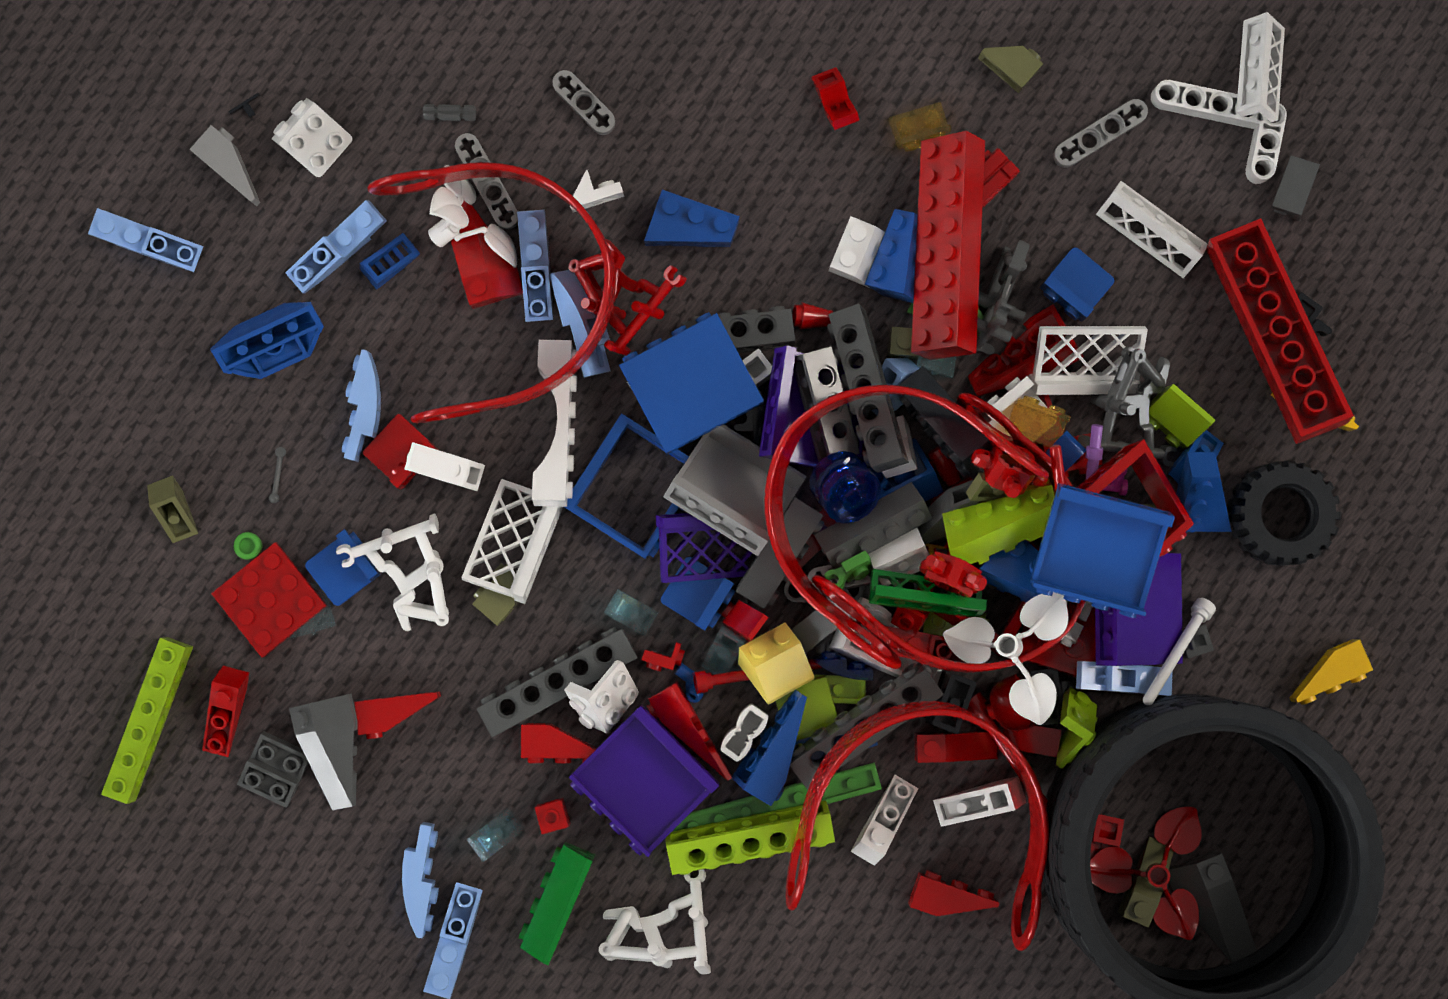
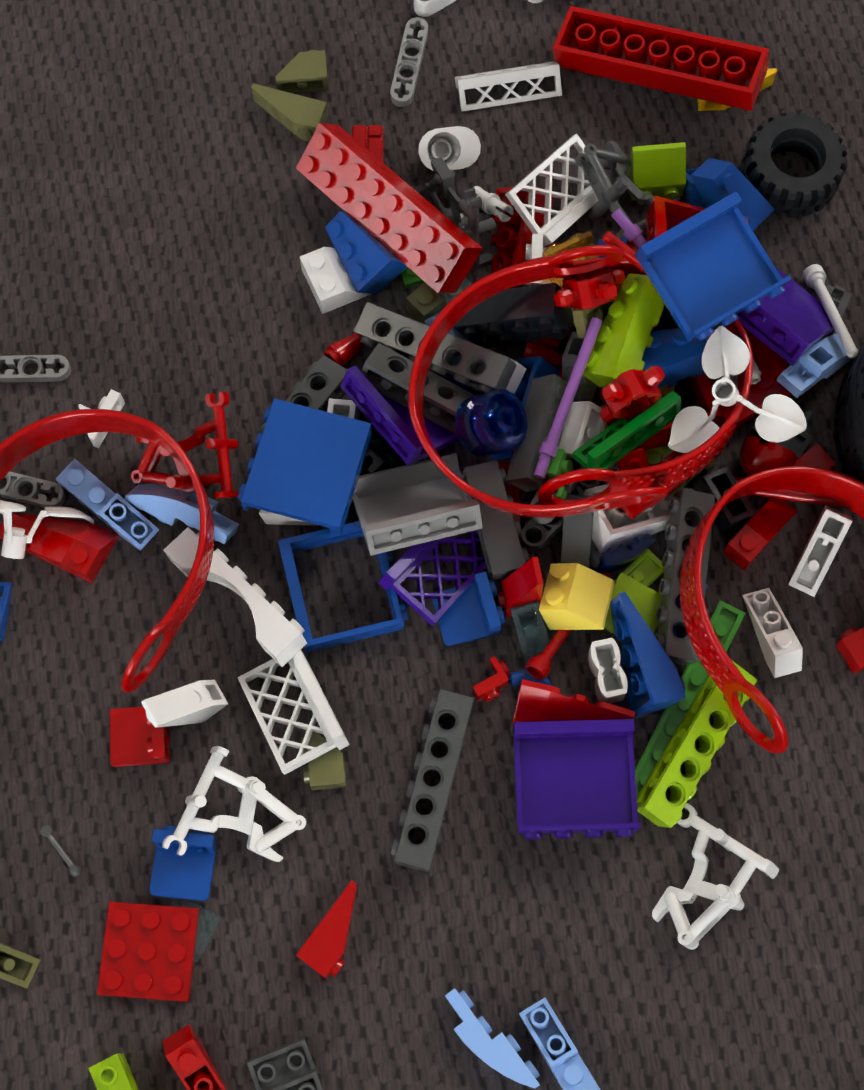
camera: 45 degrees left, 15 degrees down
(247, 545) = (90, 928): bright green tile -> none
(327, 739) = (307, 1010): dark grey wedge -> none
(366, 395) = (72, 722): light blue slope -> none
(494, 835) = (509, 944): clear light blue slope -> none
(550, 741) = (473, 830): red slope -> none
(552, 815) = (536, 882): red brick -> none
(557, 901) = (610, 942): green slope -> none
(606, 701) = (485, 758): white bracket -> none
(631, 612) = (433, 673): clear light blue slope -> none
(689, 223) = (192, 370): blue wedge -> none
(835, 98) = (206, 203): red slope -> none
(858, 550) = (549, 449): none -> medium lavender bar
(919, 125) = (281, 170): clear yellow bracket -> none
(972, 93) = (293, 111): none -> olive slope
(1033, 312) = (493, 205): none -> white pin
(1049, 239) = (455, 144): none -> white piece
(1077, 284) = (500, 162): blue bracket -> none
(1080, 718) = (832, 427): lime bracket -> none

